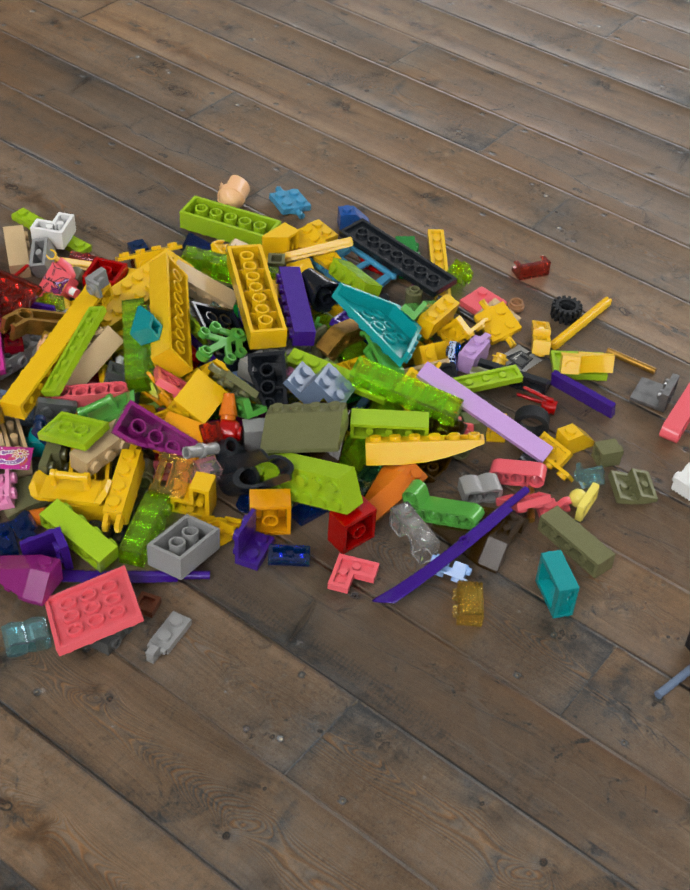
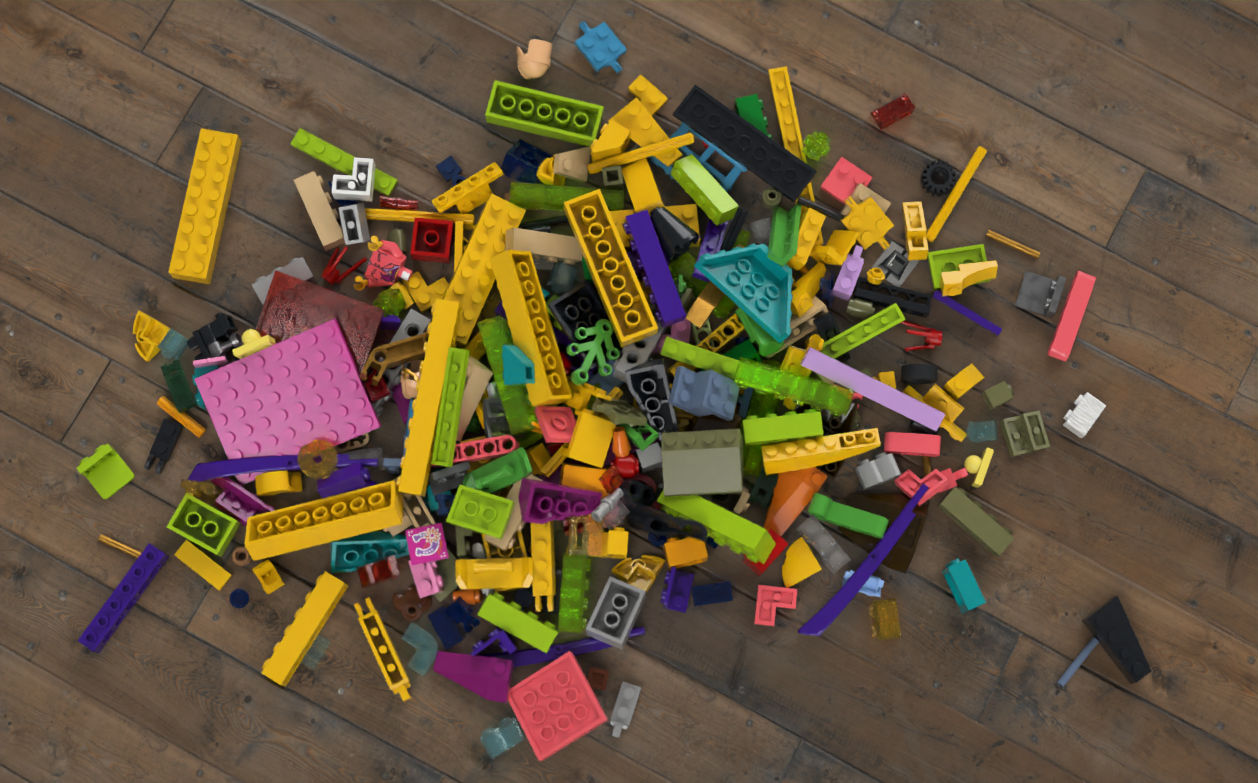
camera: 10 degrees left, 35 degrees up
(96, 281) = (448, 311): light grey bracket -> none
(349, 215) = (680, 68): blue slope -> none
(386, 546) = (799, 563): none -> yellow brick
(516, 305) = (882, 175): medium nougat plate -> none

